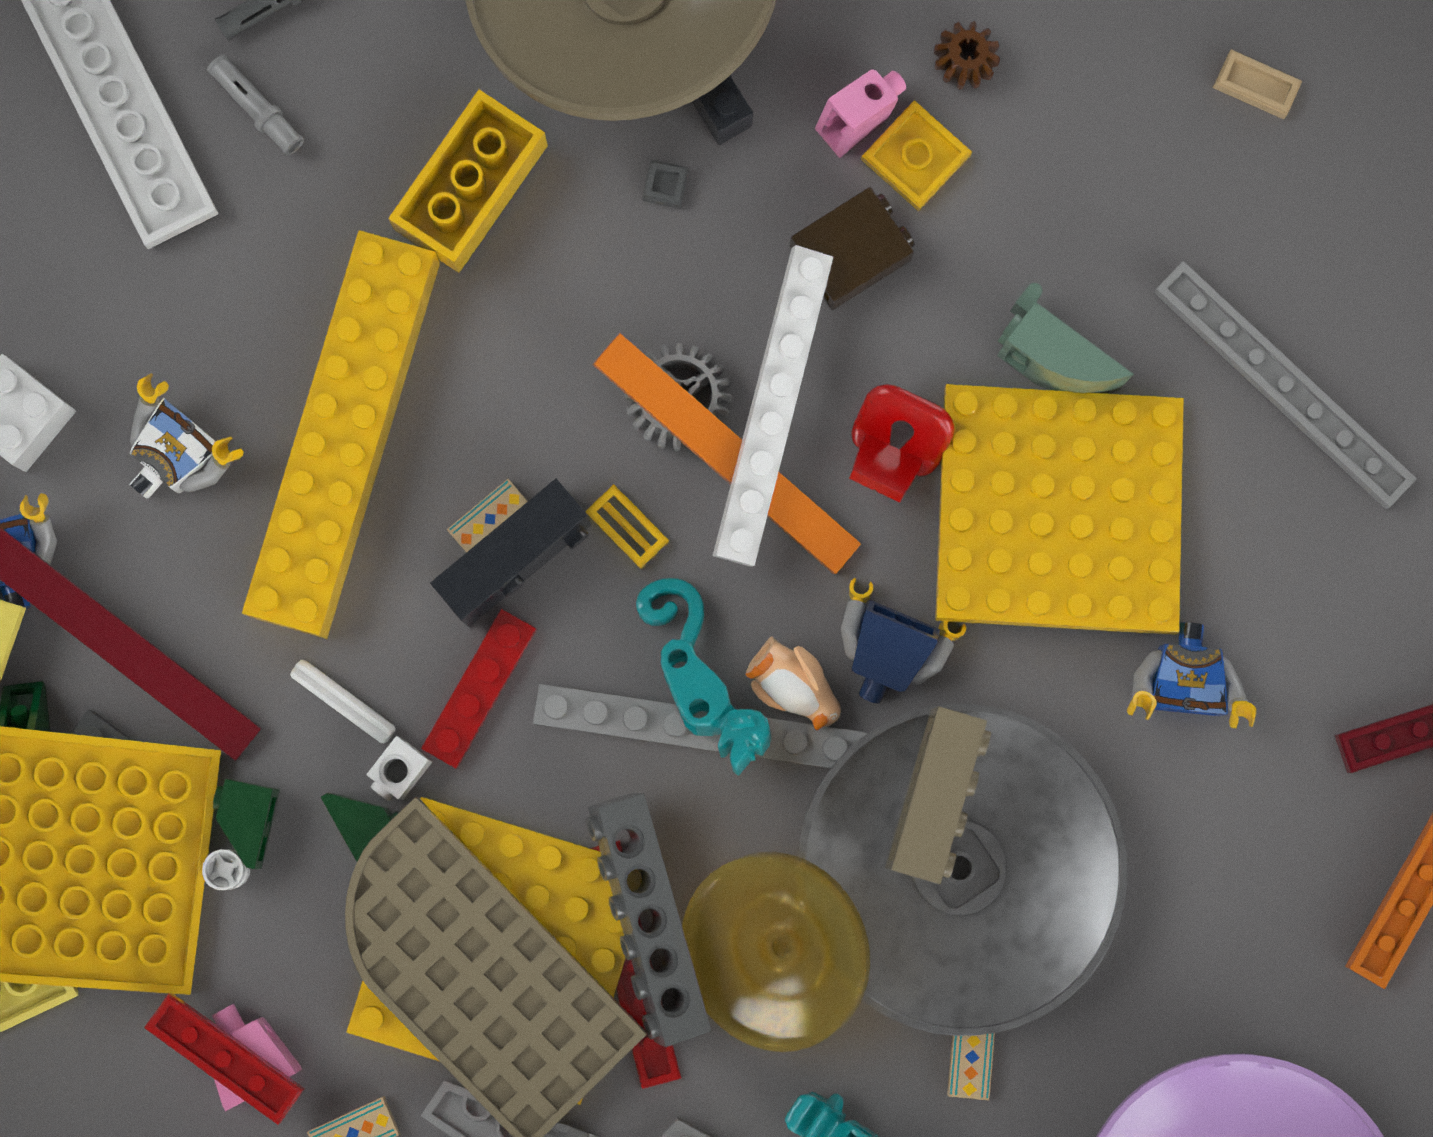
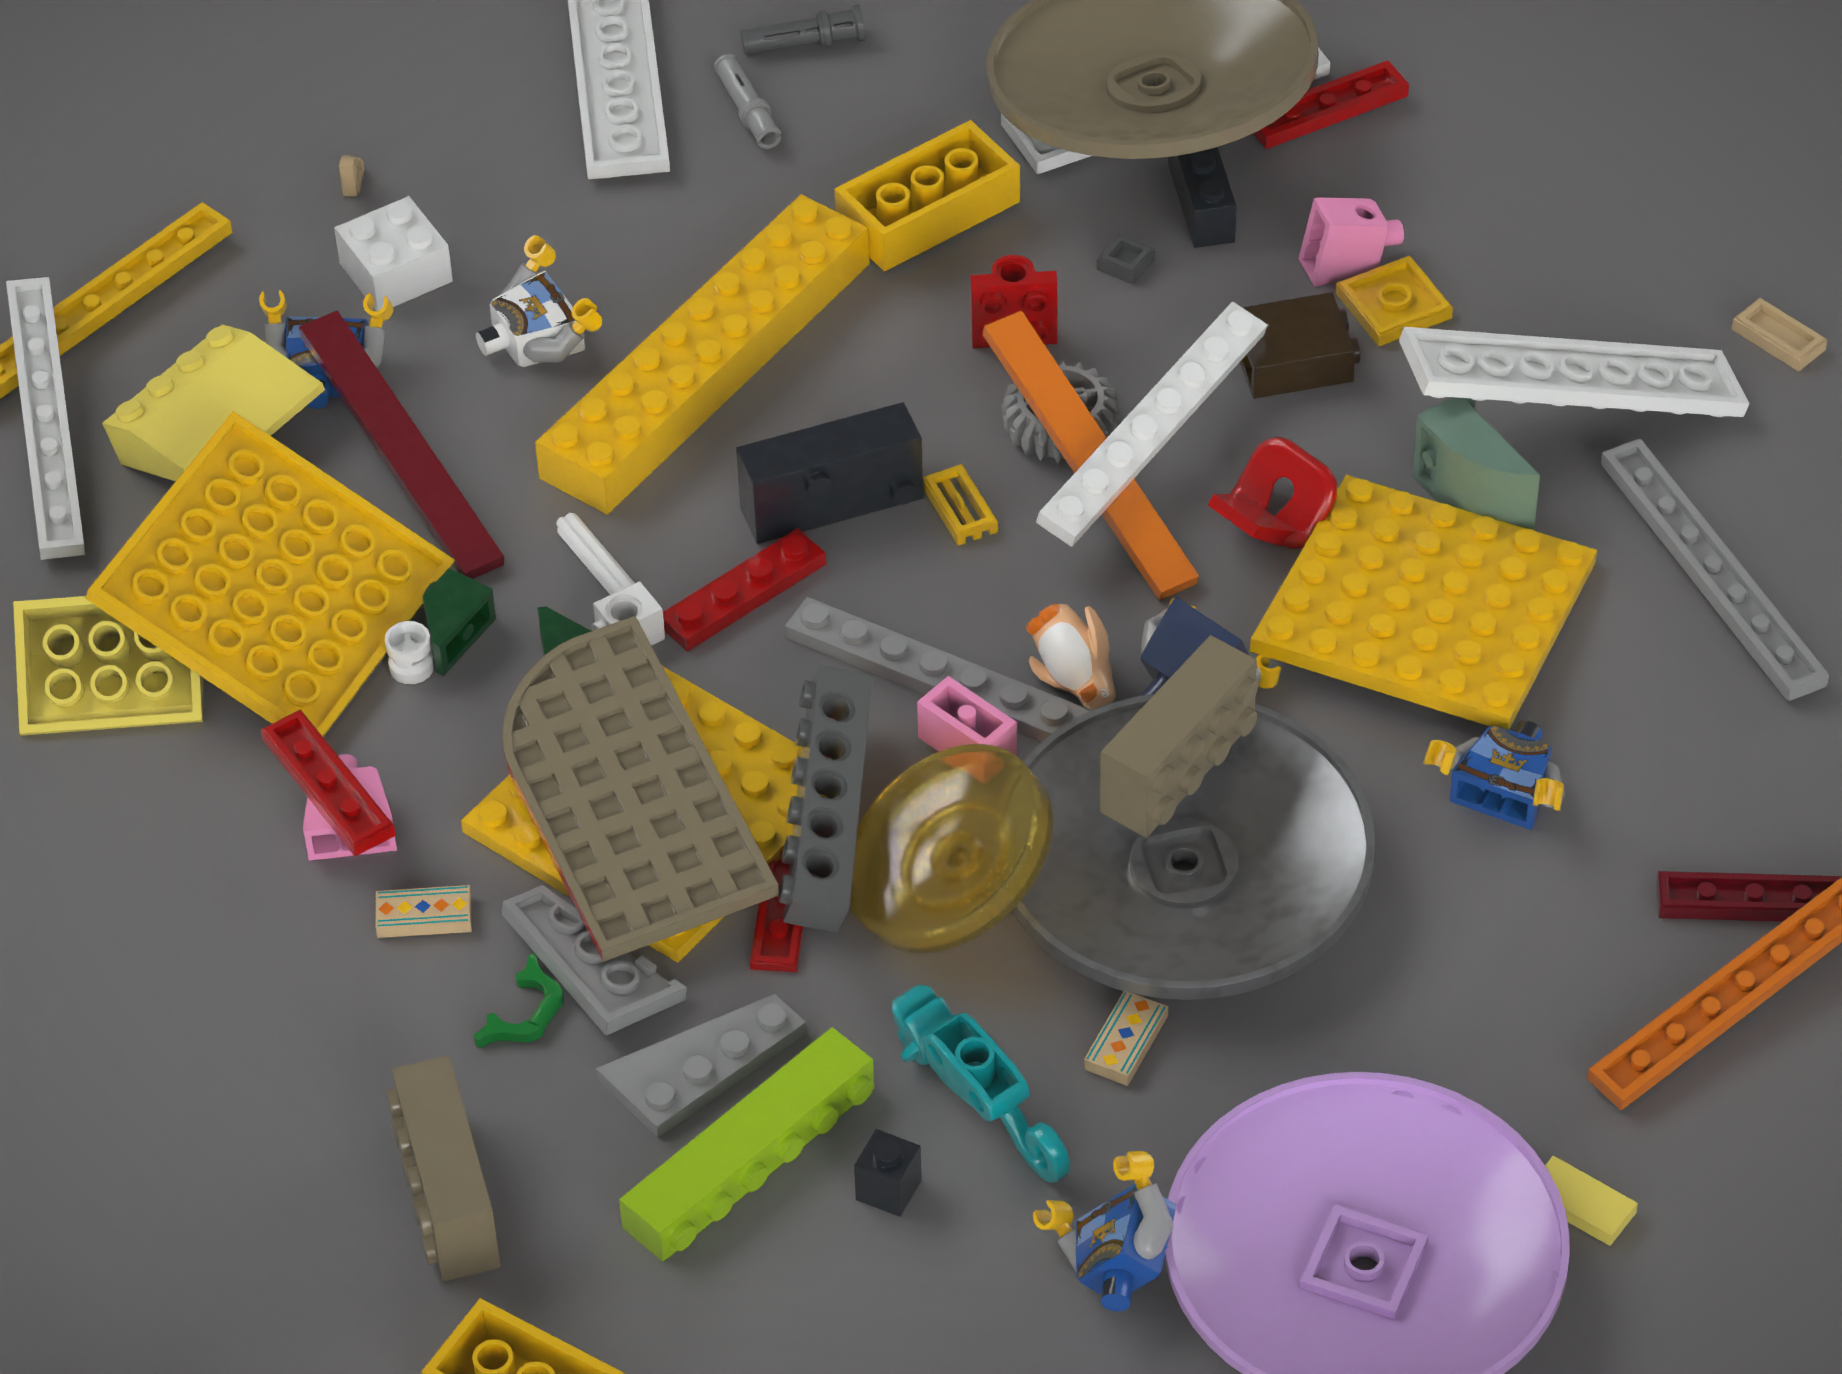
camera: 25 degrees right, 35 degrees down
(584, 311) = (1011, 289): none -> red plate
(696, 685) = (971, 627): teal animal -> none
(734, 797) = (957, 717): none -> bright pink brick
(966, 40) = (1478, 232): reddish brown gear -> none
(1114, 228) = (1572, 372): none -> white plate
(1379, 1088) = (1591, 1203): none -> light yellow tile

